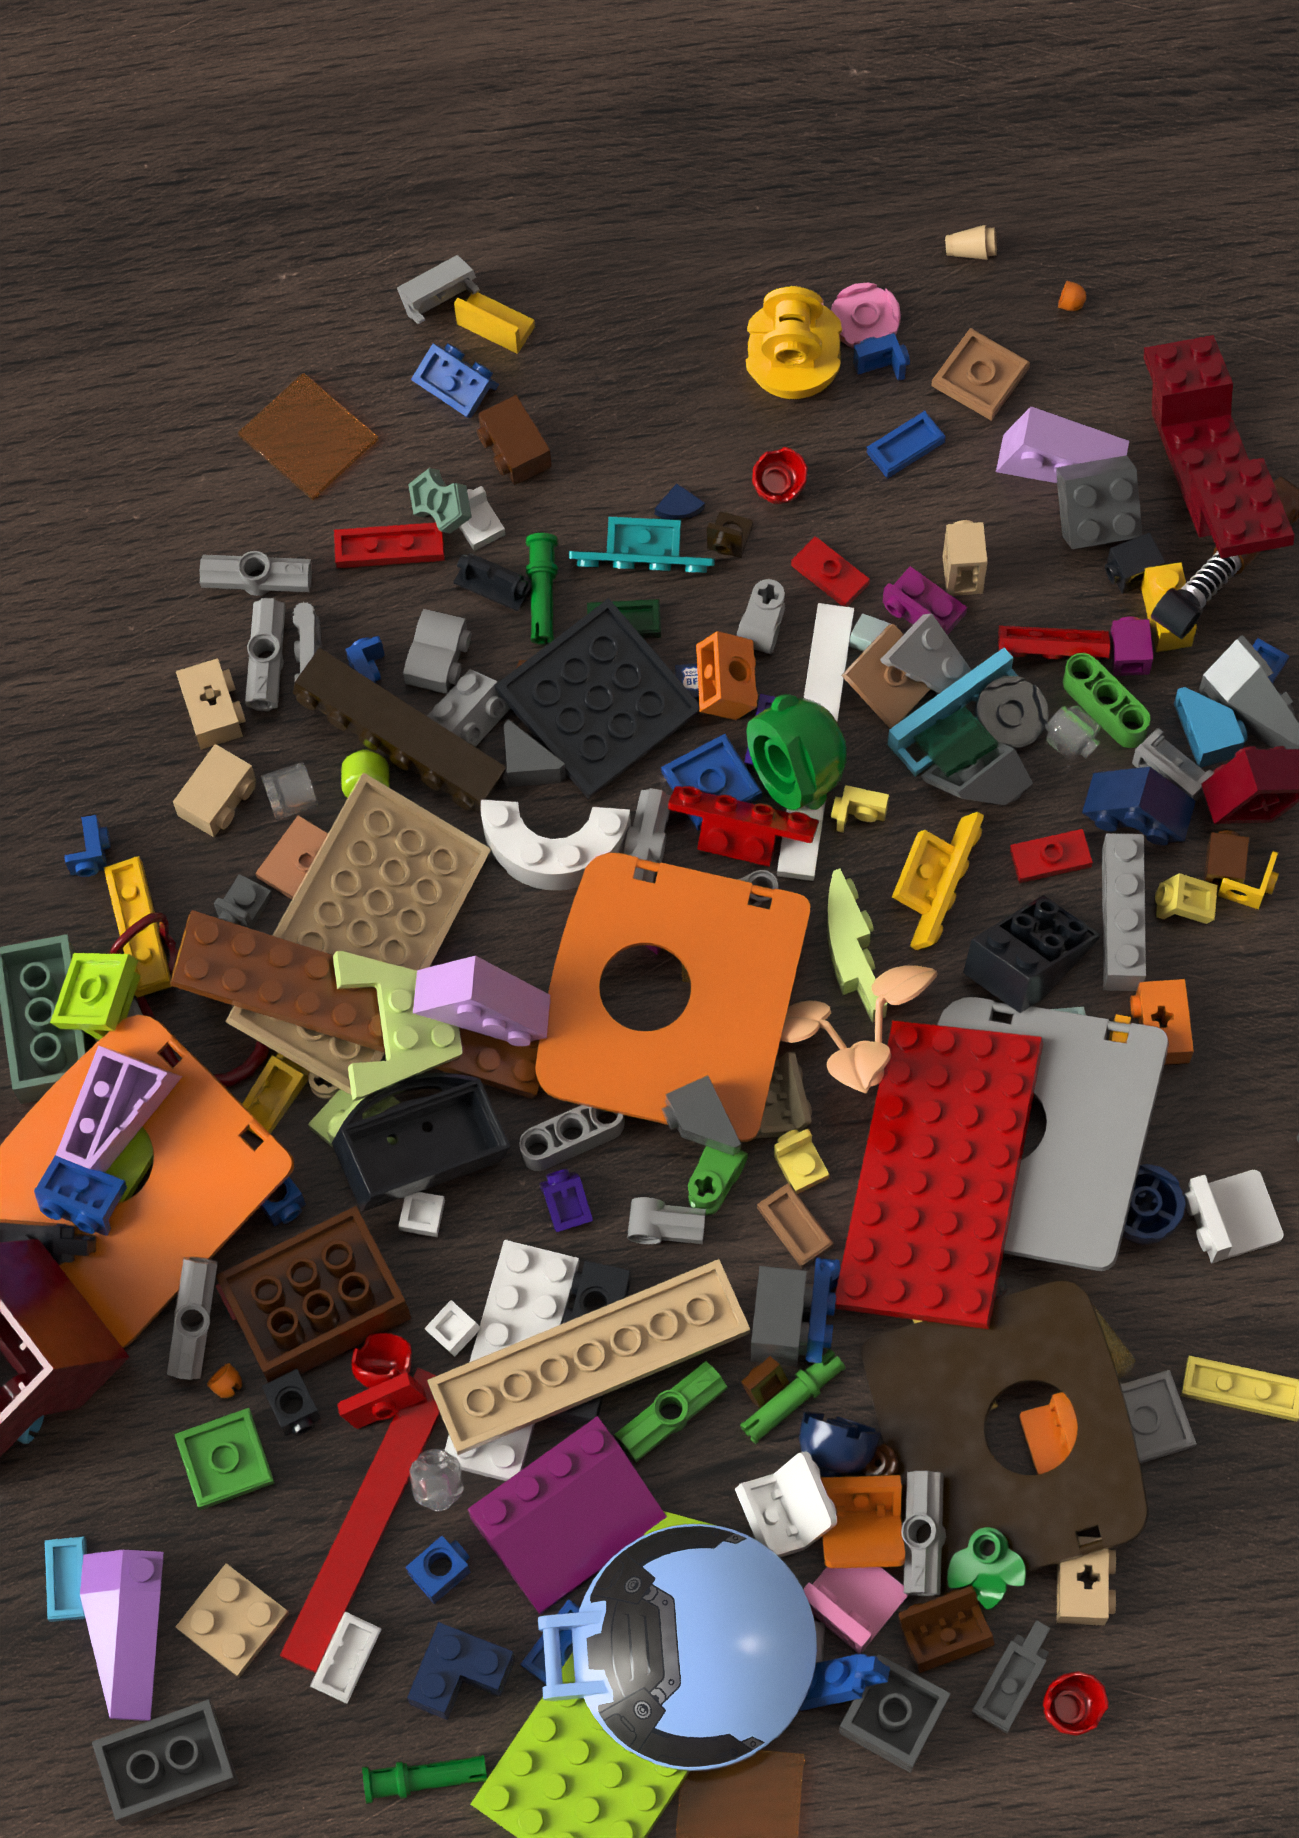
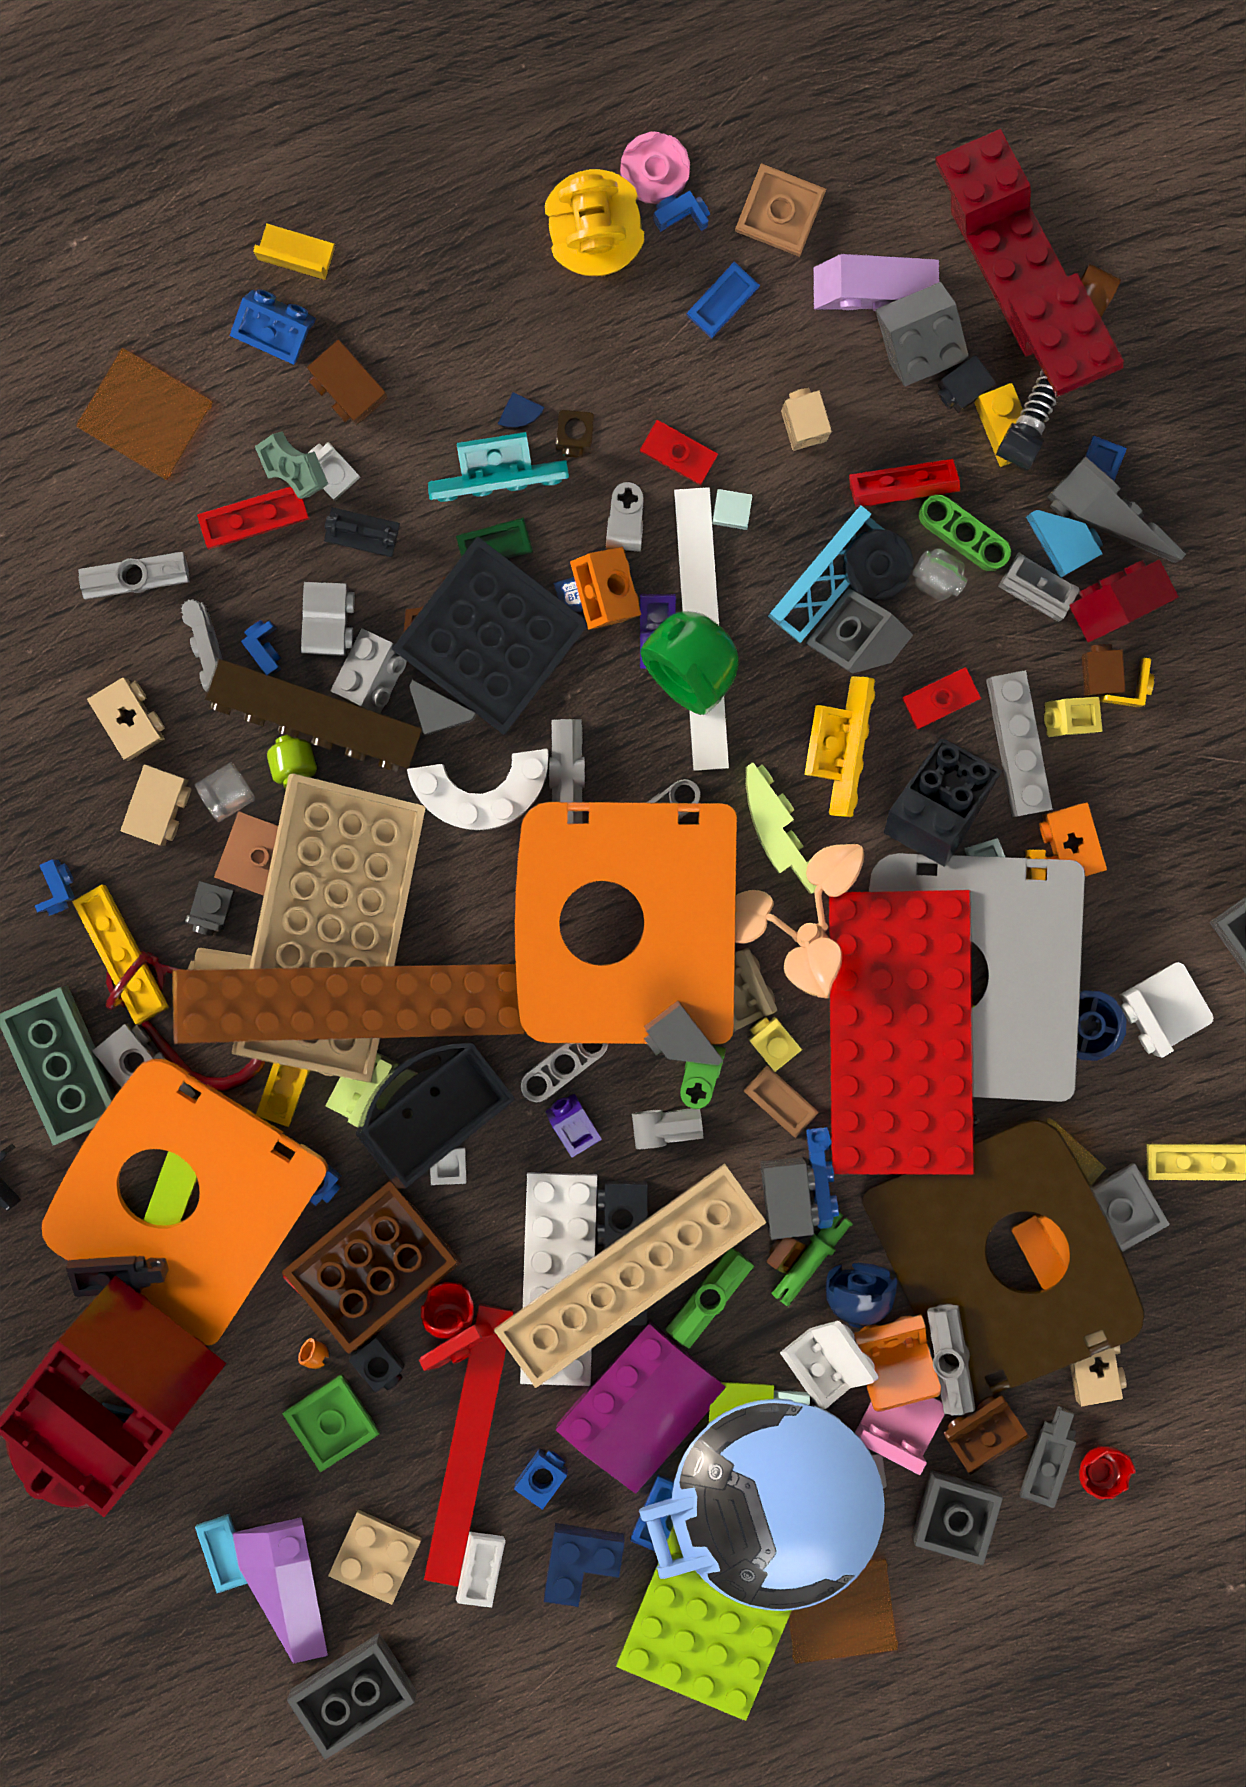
camera: 15 degrees left, 20 degrees up
(79, 1195) = (141, 1227): blue bracket -> none
(96, 993) = (104, 1045): lime bracket -> none
(112, 1107) = (150, 1153): lavender wedge -> none
(189, 1342) = (269, 1297): light grey piece -> none
(264, 673) = (162, 634): light grey piece -> none
(405, 1779) = (555, 1659): green pin -> none
(410, 1040) = (403, 1010): yellowish green wing -> none
(436, 287) = (229, 230): light grey hinge -> none
(436, 1479) = (521, 1404): clear head -> none
(452, 1328) = (501, 1264): white plate -> none
(482, 1000) = (459, 982): lavender wedge -> none
(541, 572) = (405, 513): green pin -> none
(713, 770) = (613, 692): blue tile -> none
(739, 827) = (651, 735): red bracket -> none
(780, 475) = (610, 366): red hair -> none
(844, 1680) = (911, 1503): blue hinge -> none
(862, 803) = (761, 688): light yellow bracket -> none
(884, 687) = (760, 553): medium nougat plate -> none
(888, 1459) = (908, 1301): reddish brown plate -> none
(917, 595) = (774, 468): magenta bracket -> none
(927, 655) = (790, 529): light grey wing -> none
(956, 741) = (834, 609): clear green piece -> none
(972, 243) = (744, 66): tan cone -> none
(987, 1573) = (1012, 1382): green plate -> none
(1072, 297) = (852, 105): orange hinge -> none
(1131, 646) = (977, 471): magenta brick -> none
(1141, 801) = (1014, 636): dark blue brick -> none

